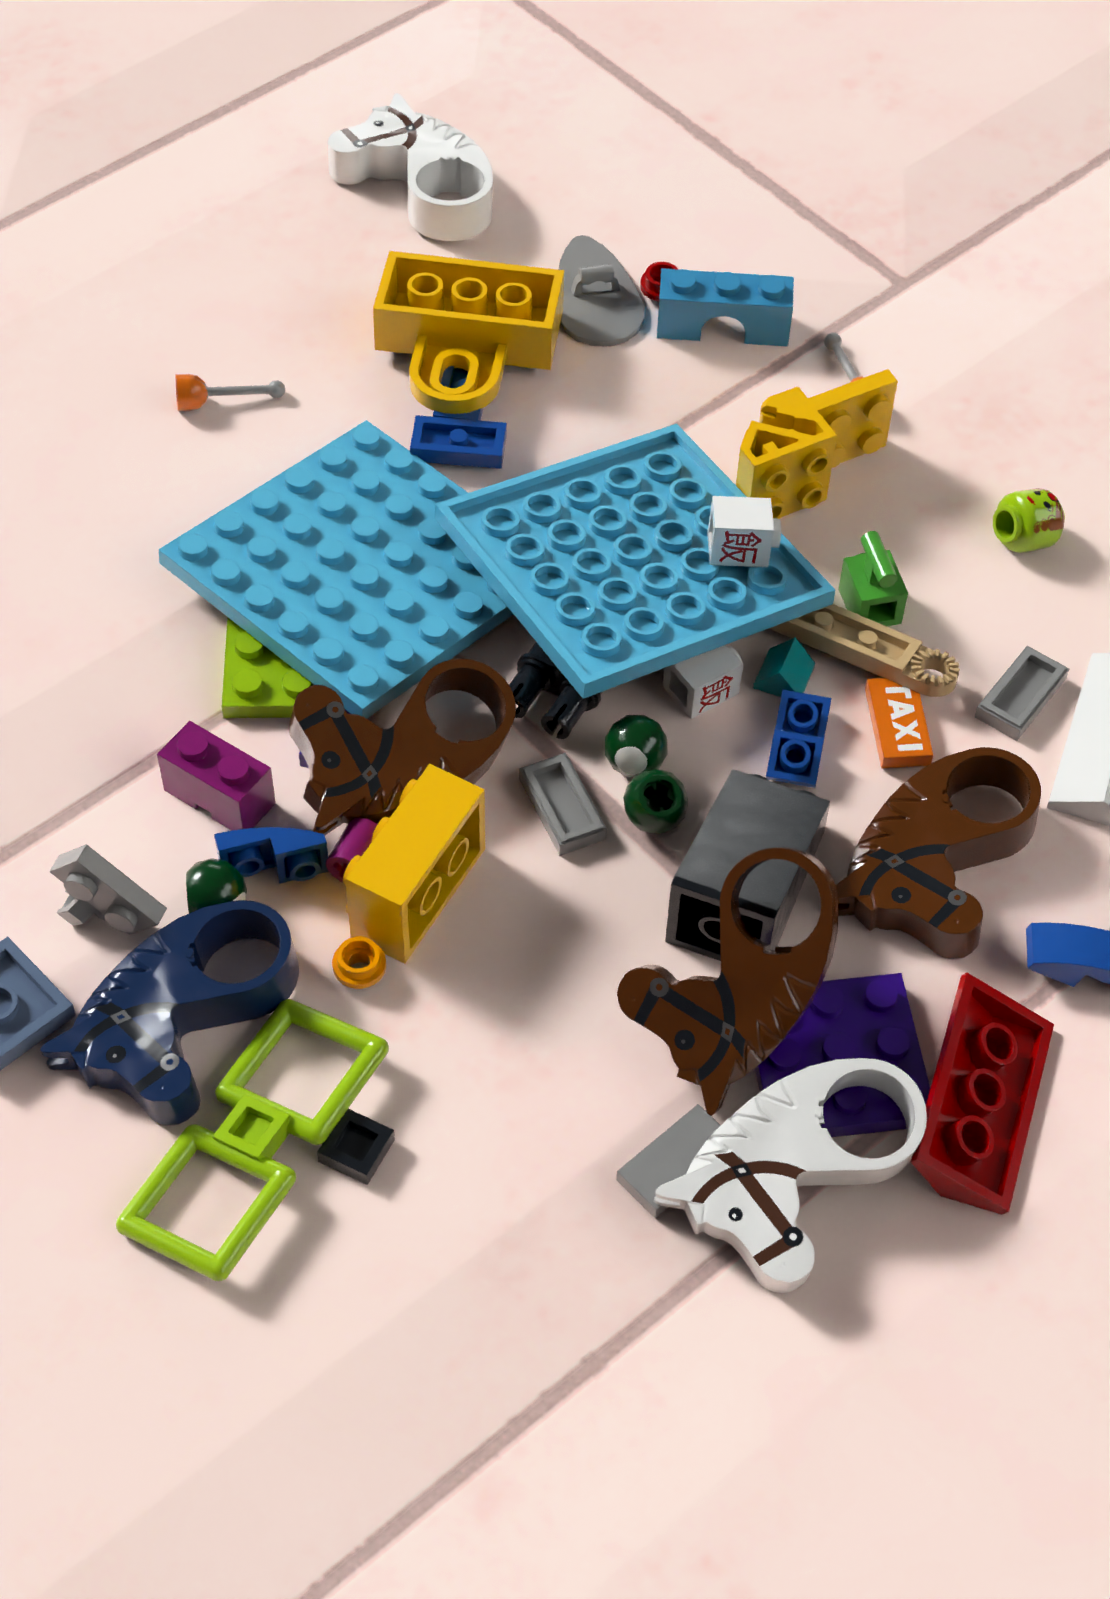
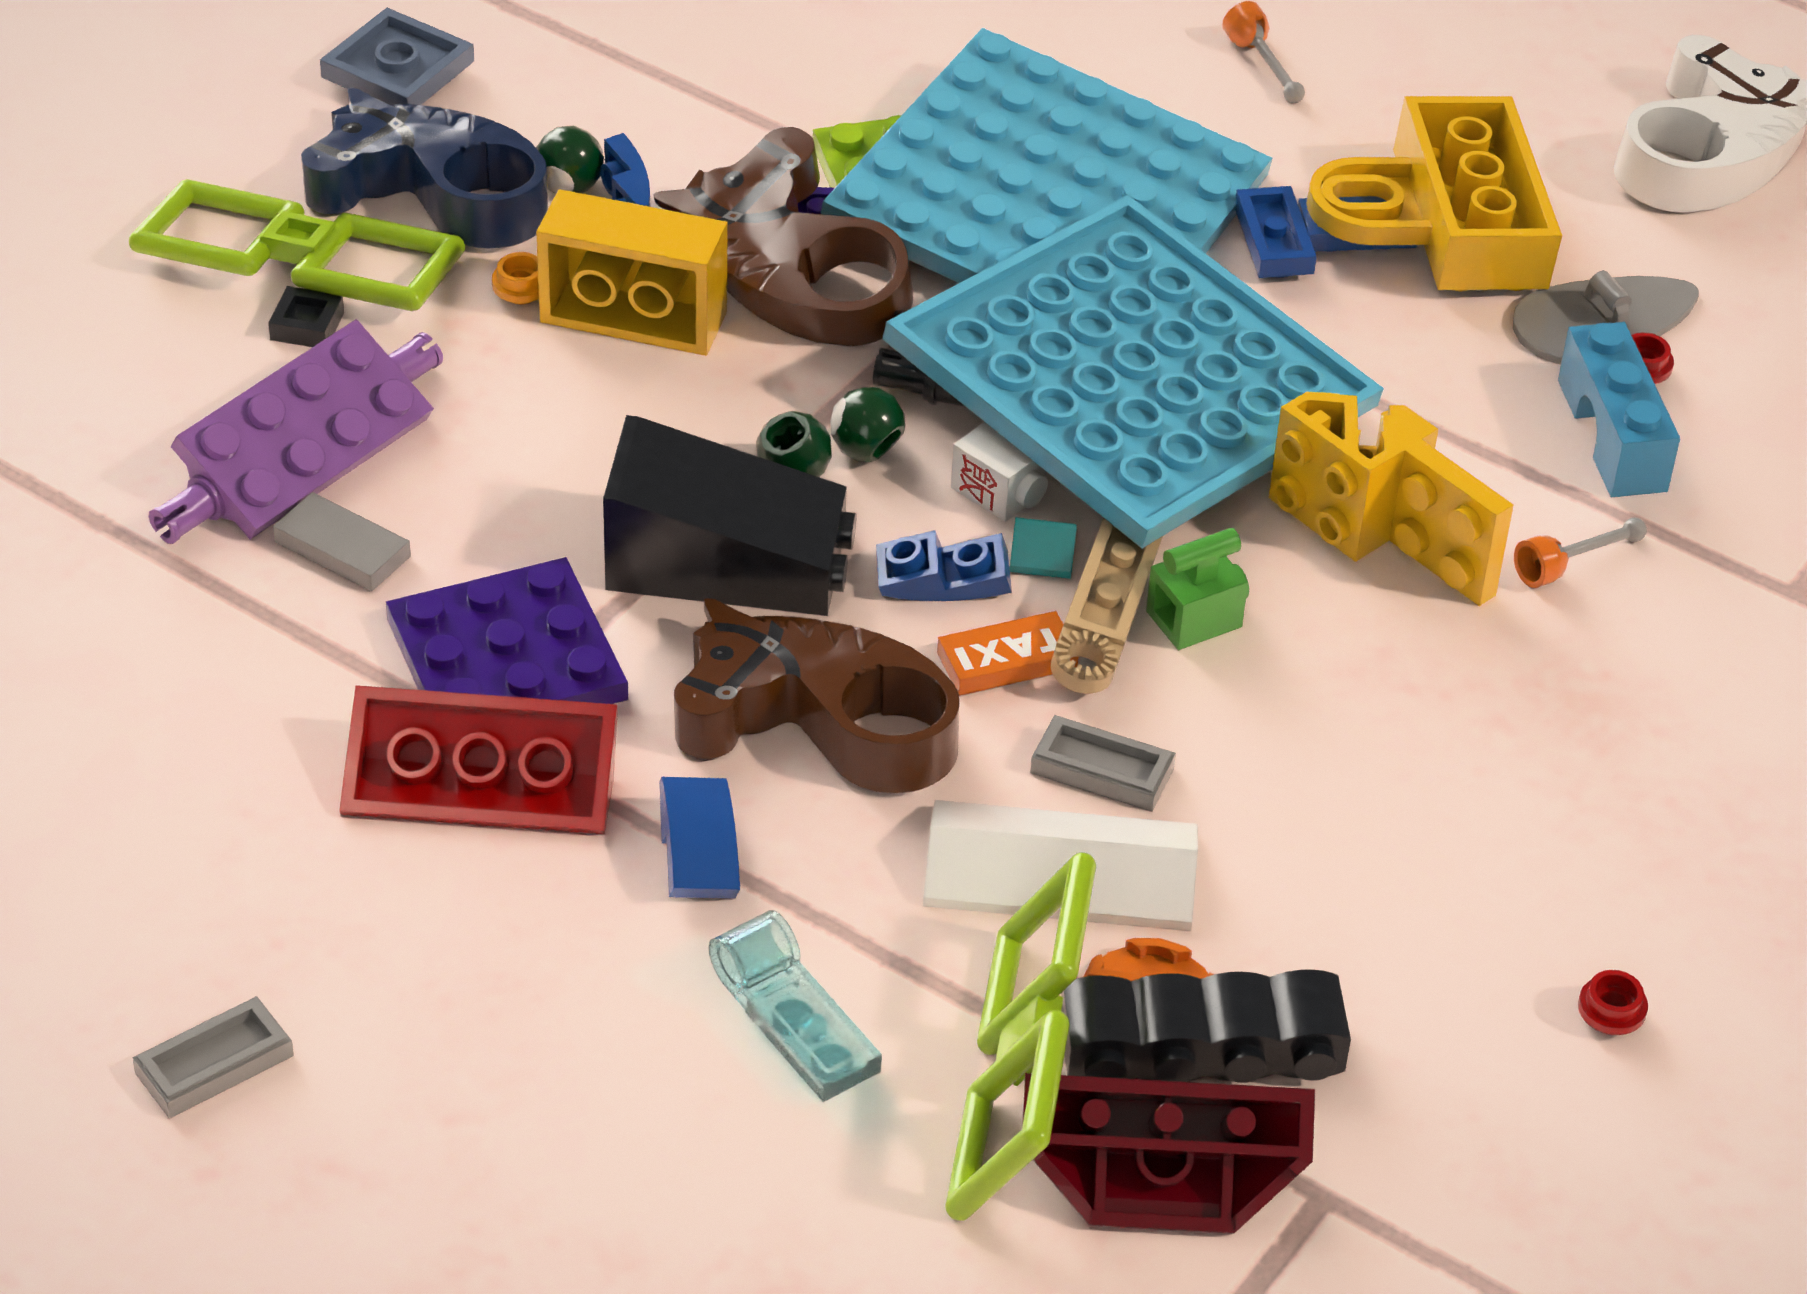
camera: 75 degrees right, 10 degrees down
(104, 891) = (531, 82): light grey hinge -> none
(216, 777) = (708, 129): magenta brick -> none
(545, 1168) = (297, 431): none -> medium lavender plate
(562, 804) = (798, 385): light grey tile -> none
(736, 1021) = (534, 497): reddish brown animal -> none
(742, 531) = (1182, 420): white brick -> none
(752, 1164) = (336, 578): white animal -> none
(1029, 520) = (1386, 729): lime head -> none

